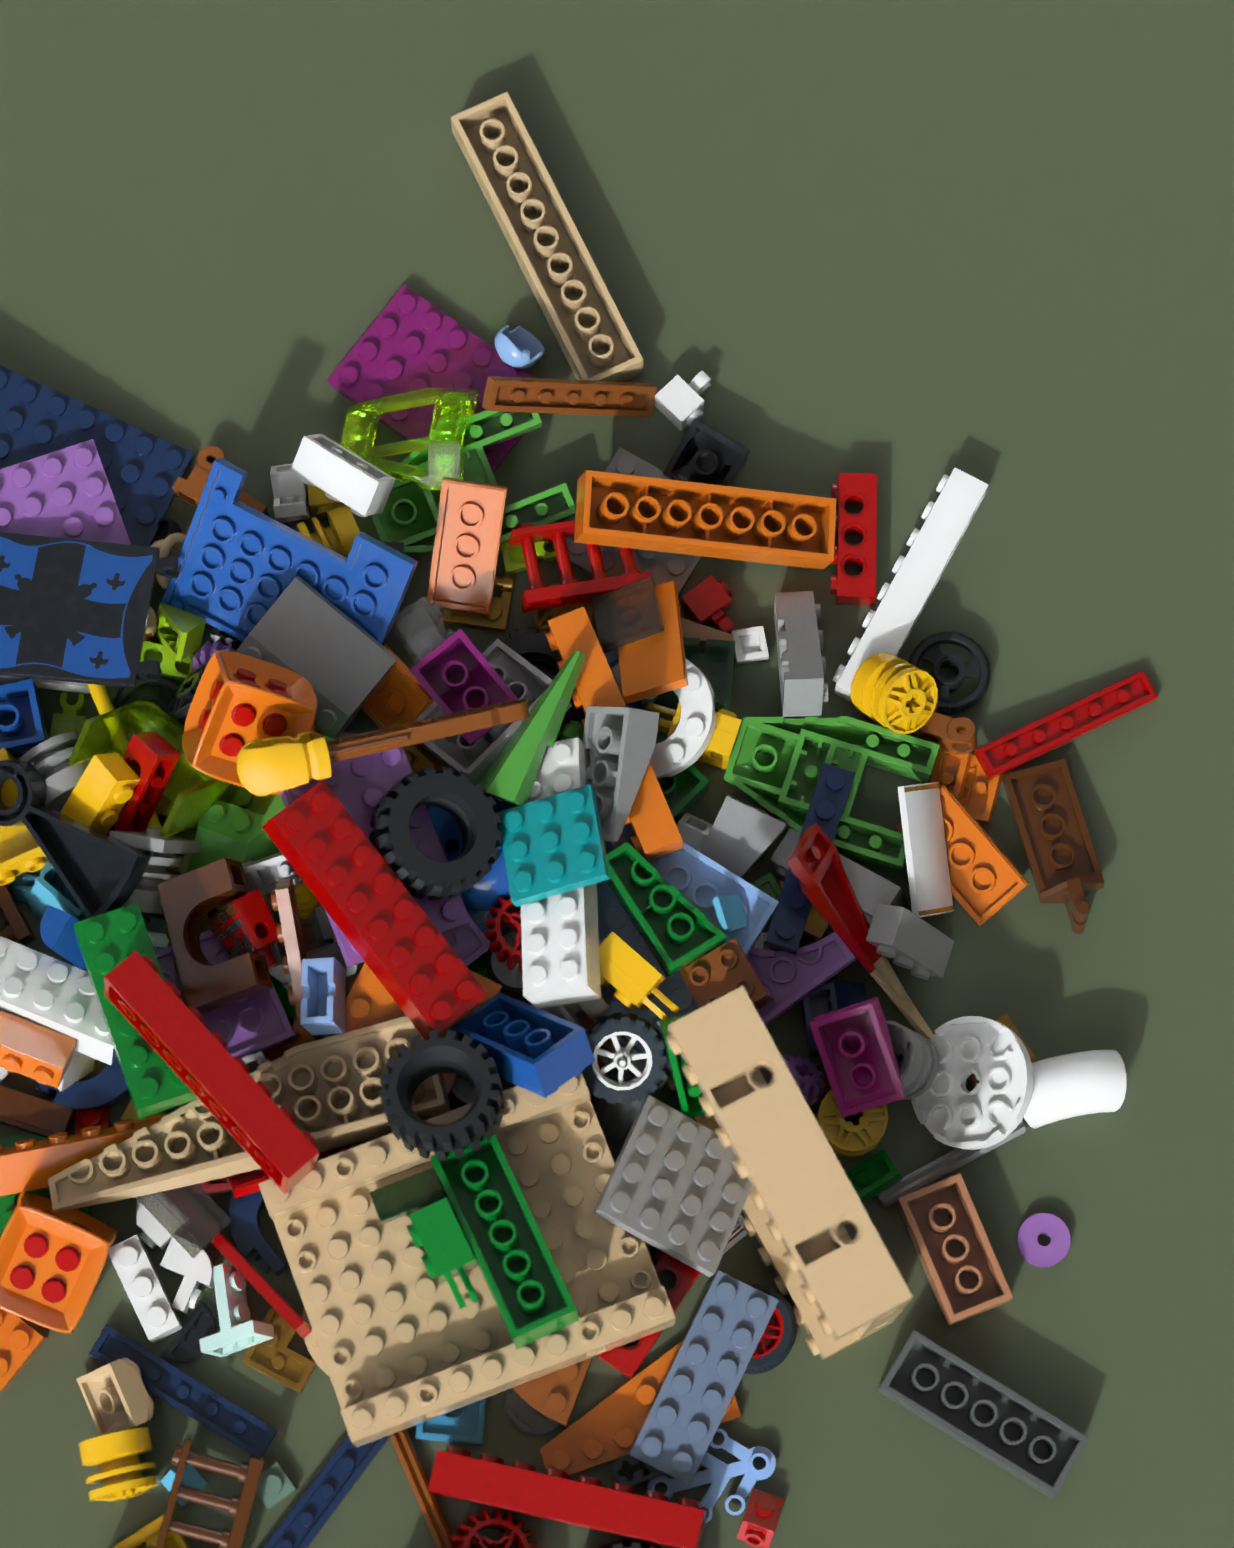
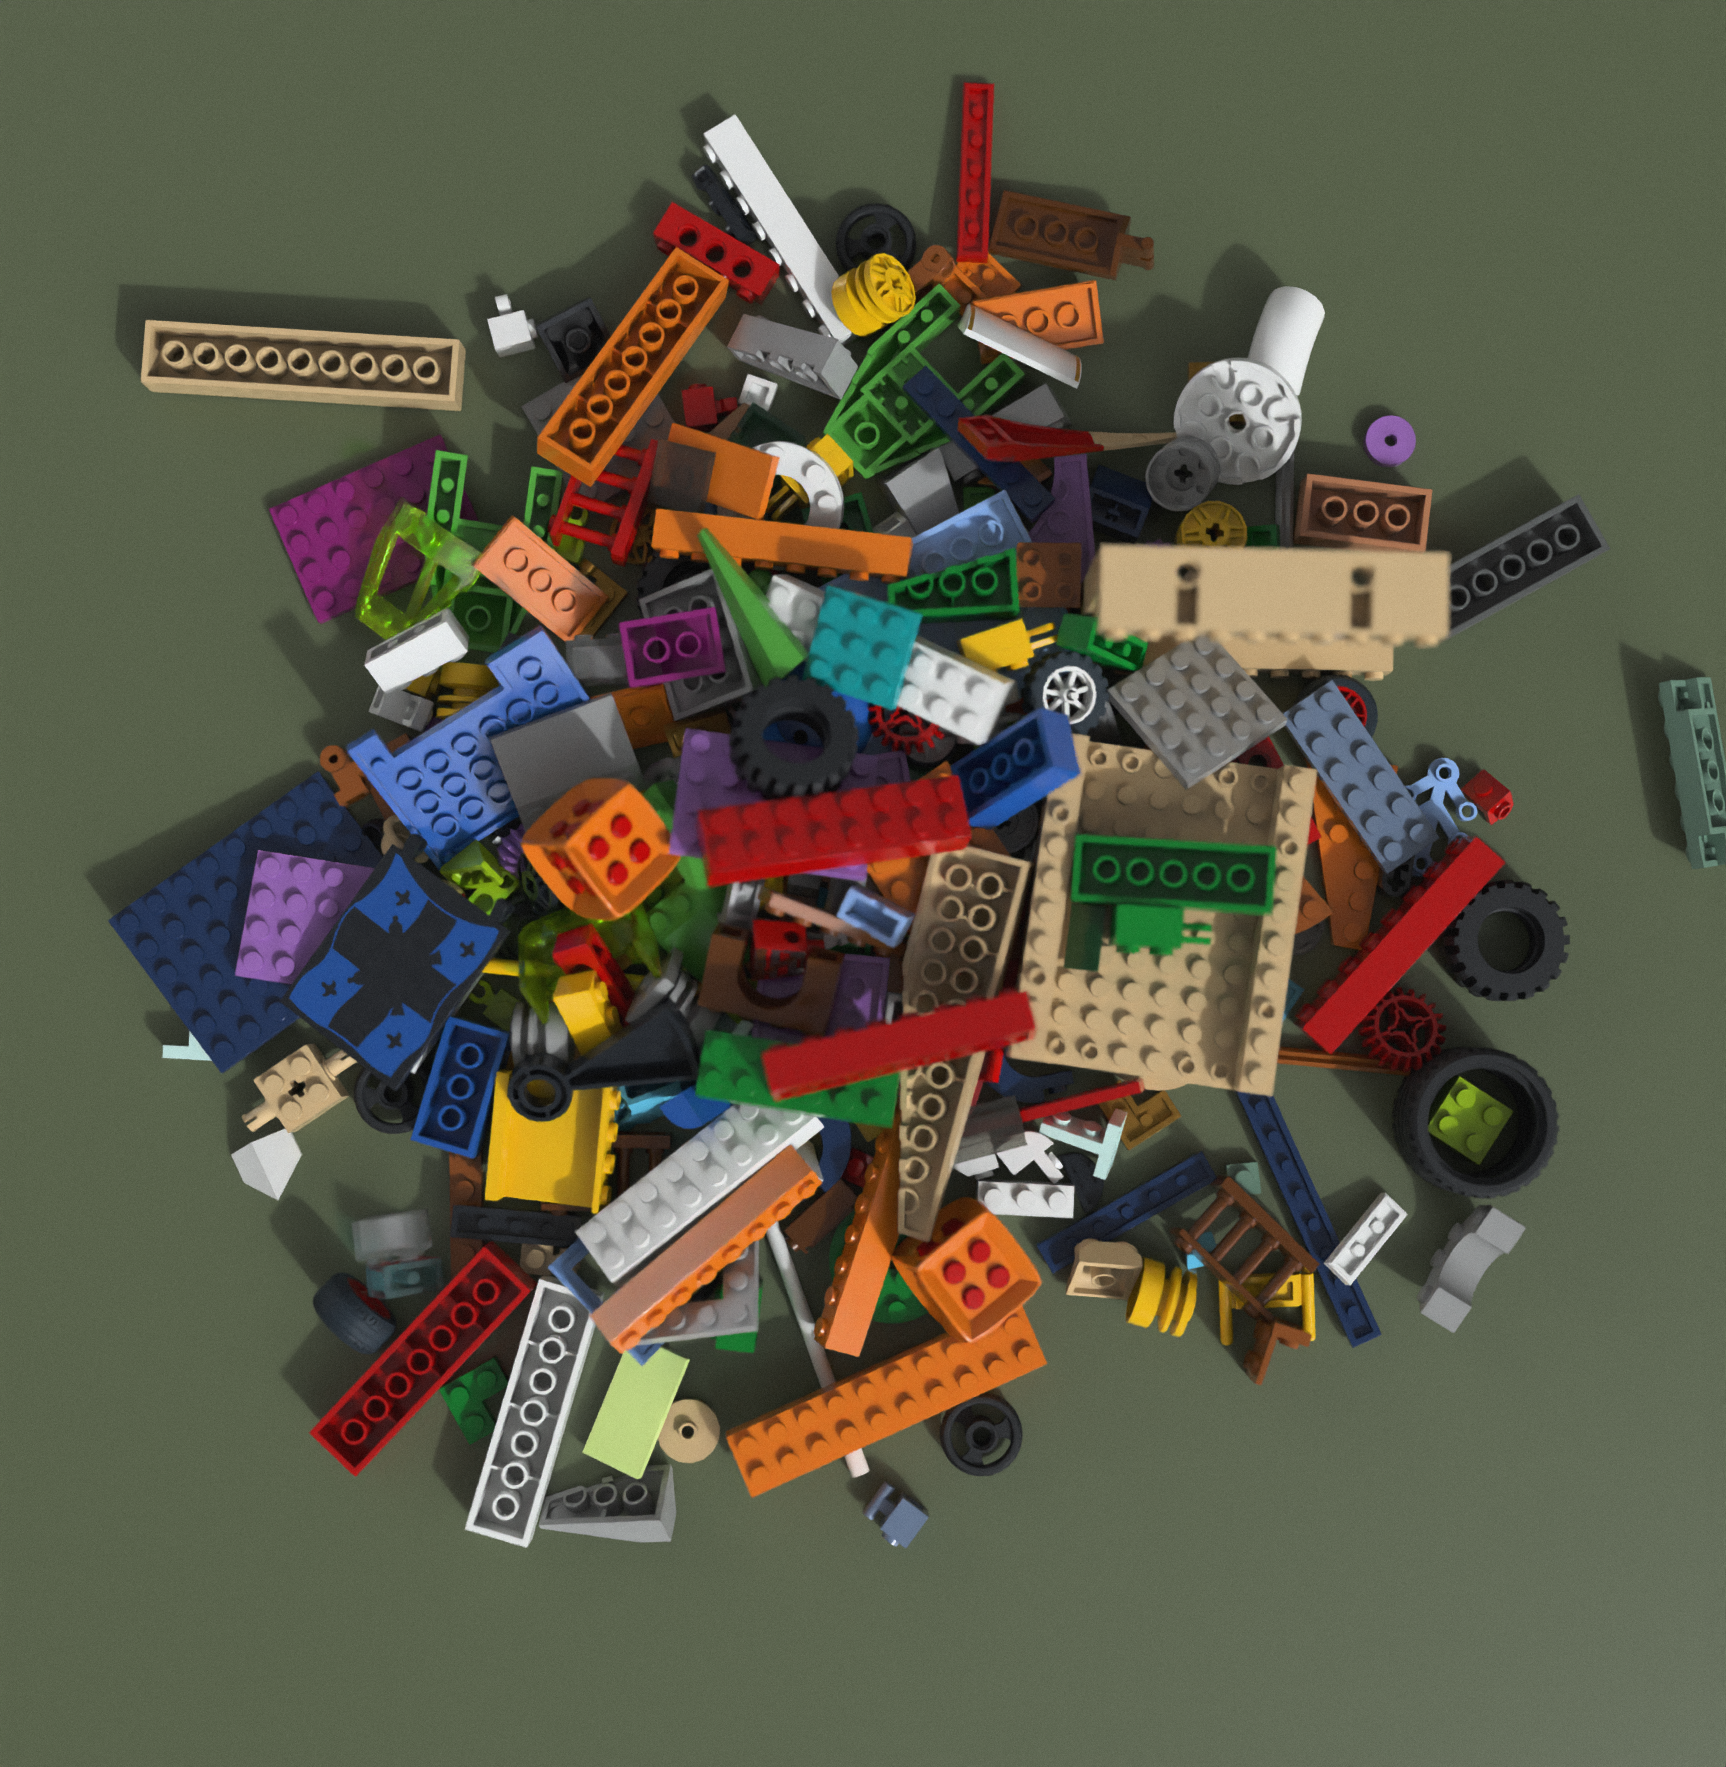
camera: 60 degrees left, 10 degrees up
(290, 762) = (667, 828): piece -> none
(432, 1058) = (991, 838): black tyre -> none
(518, 347) = (383, 442): light blue hair -> none
(569, 396) = (457, 420): dark orange plate -> none
(619, 753) = (810, 549): light grey wedge -> none
(730, 912) = (992, 535): medium azure slope -> none
(858, 1057) = (1171, 498): dark pink slope -> none
(904, 521) = (724, 205): none -> black hinge
(909, 941) = (1092, 403): light grey brick -> none

